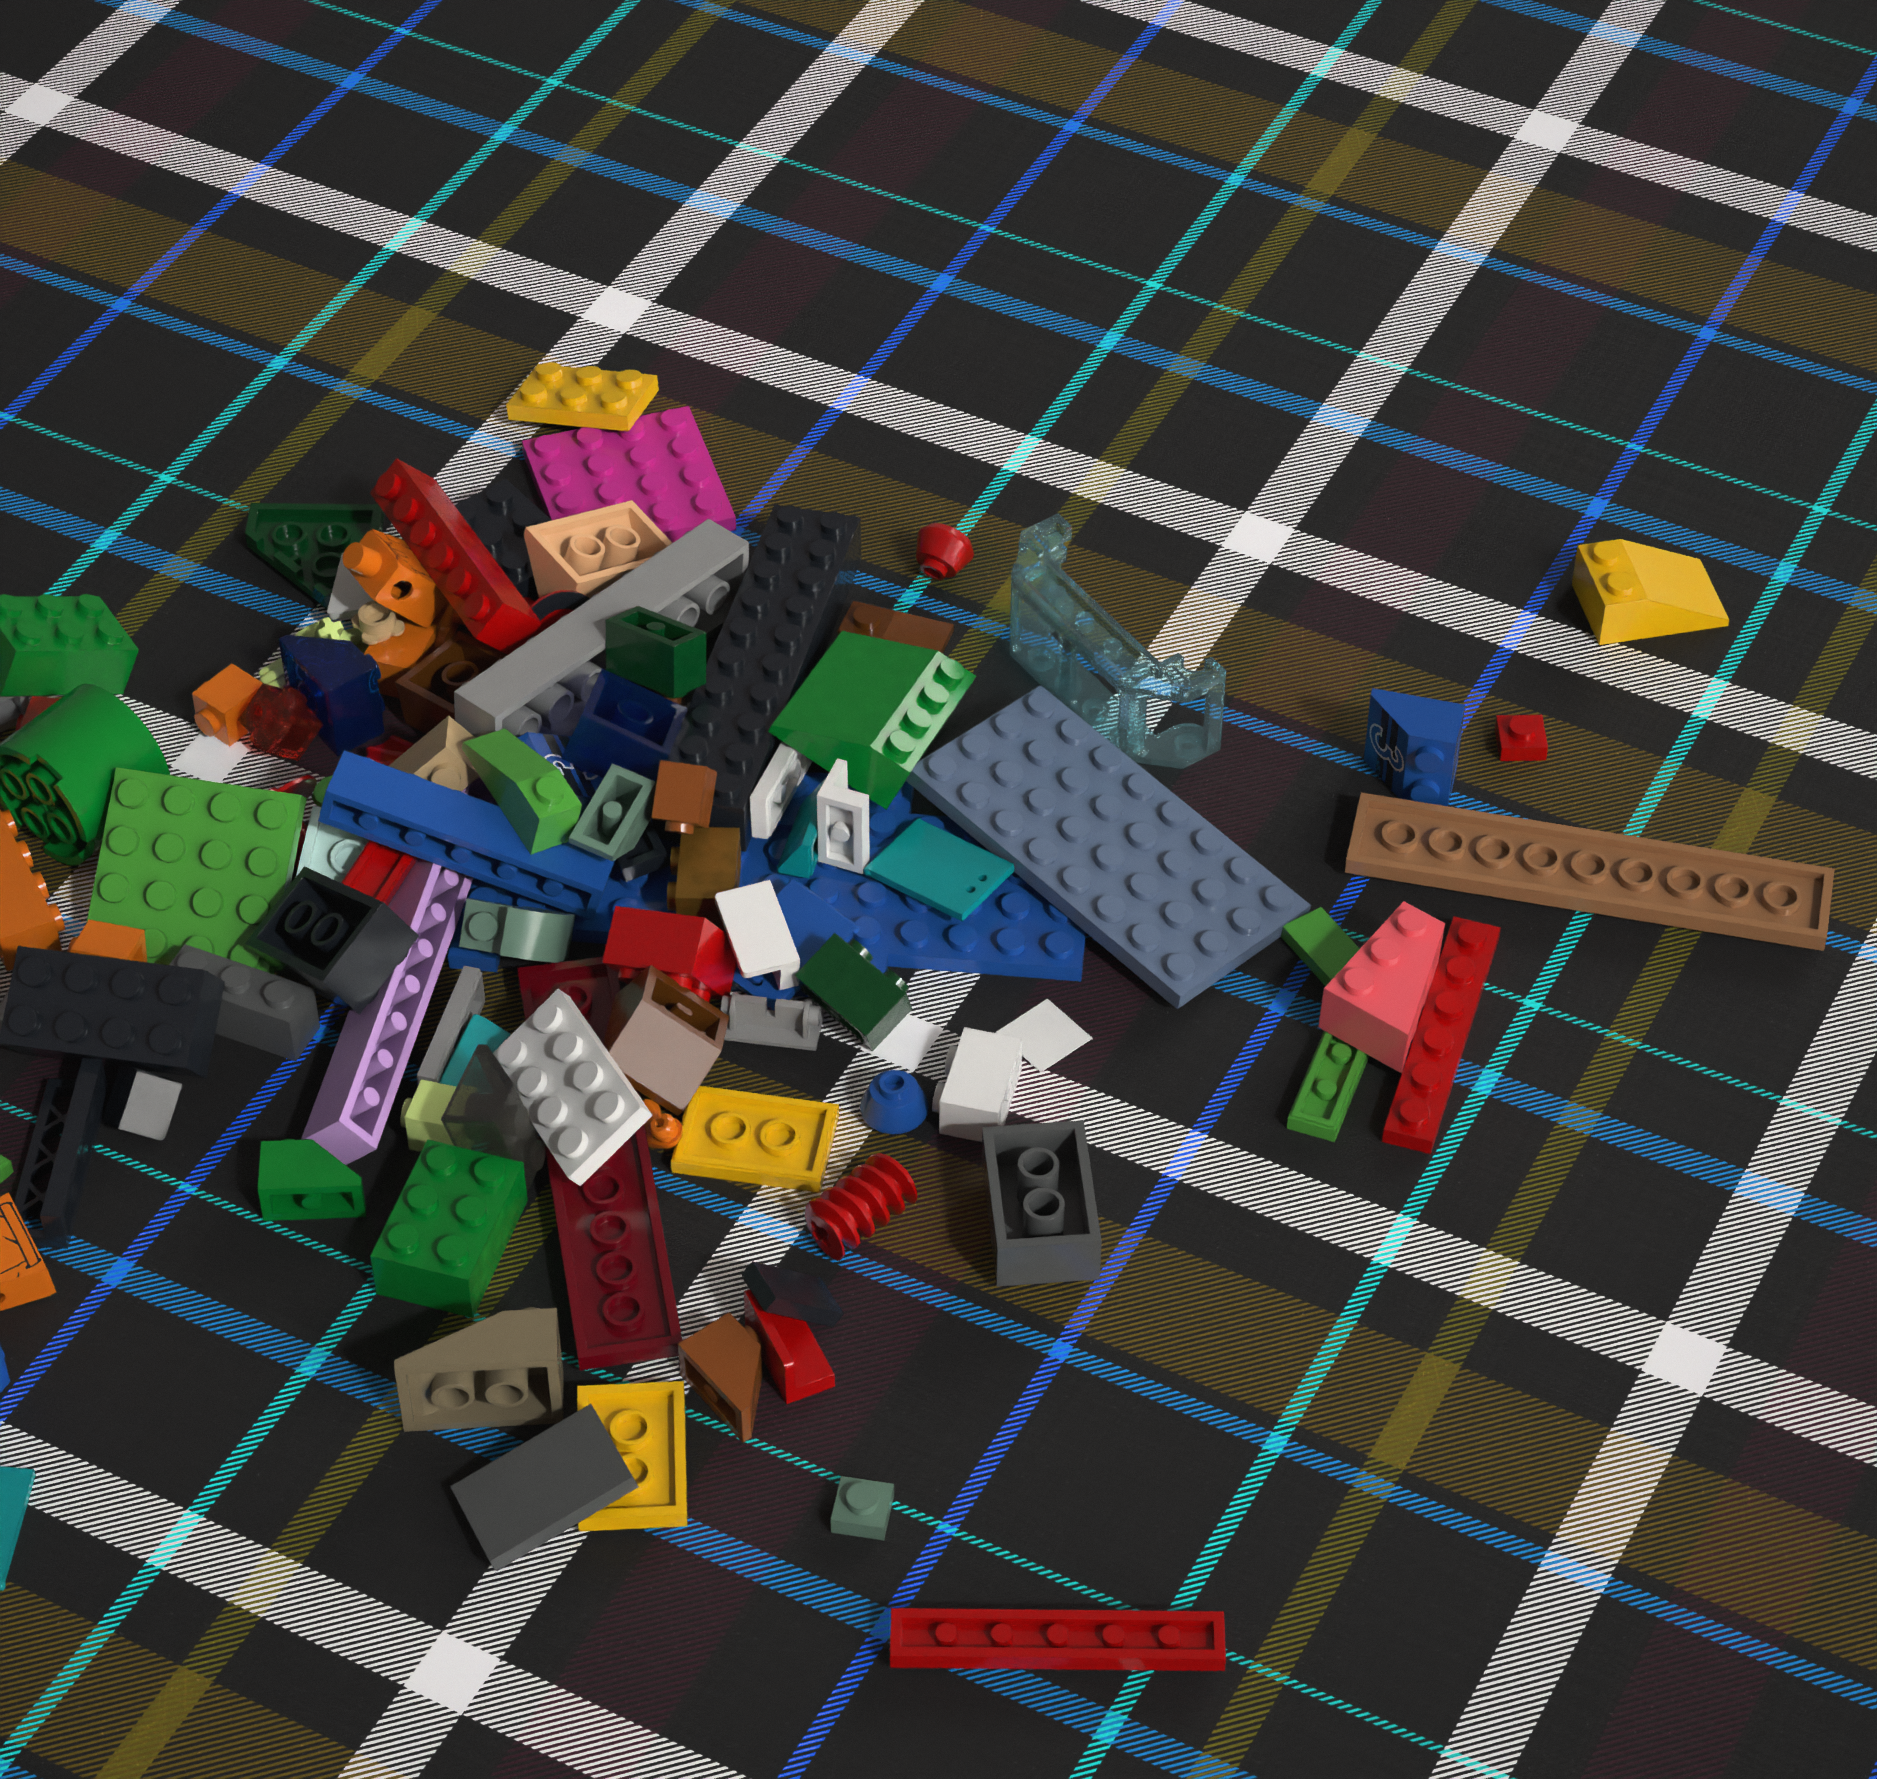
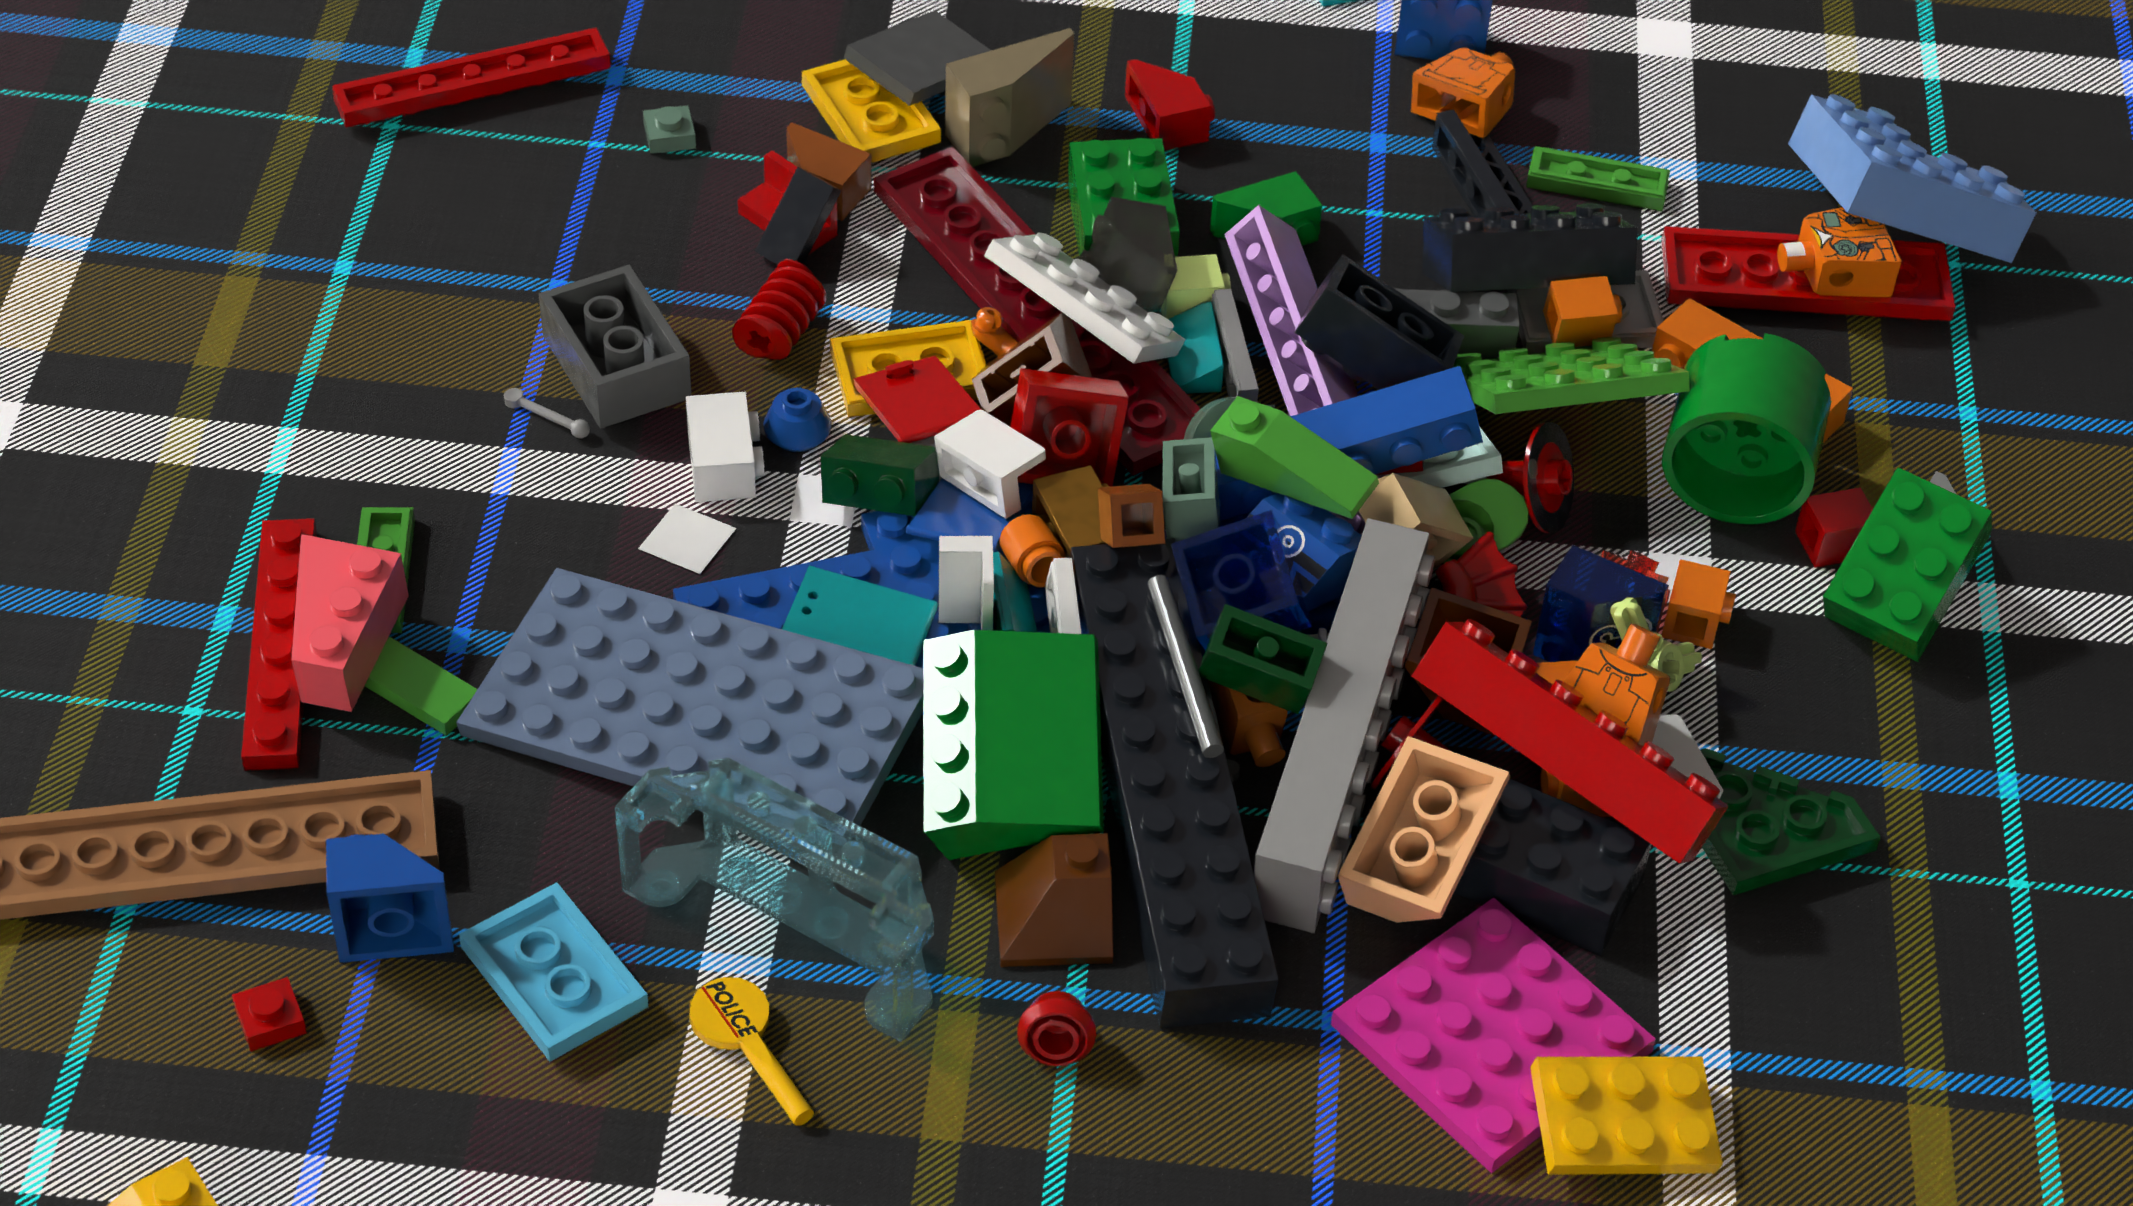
camera: 155 degrees right, 0 degrees up
(315, 1347) = (1168, 104): none -> red slope
(713, 683) = (1185, 666): none -> dark grey bar
(765, 855) = (1030, 548): none -> orange brick
(777, 1059) = (916, 398): none -> red container
(1150, 1220) = (515, 398): none -> light grey hinge
(1169, 632) = (734, 1016): none -> yellow piece
(1296, 698) = (553, 971): none -> medium azure plate

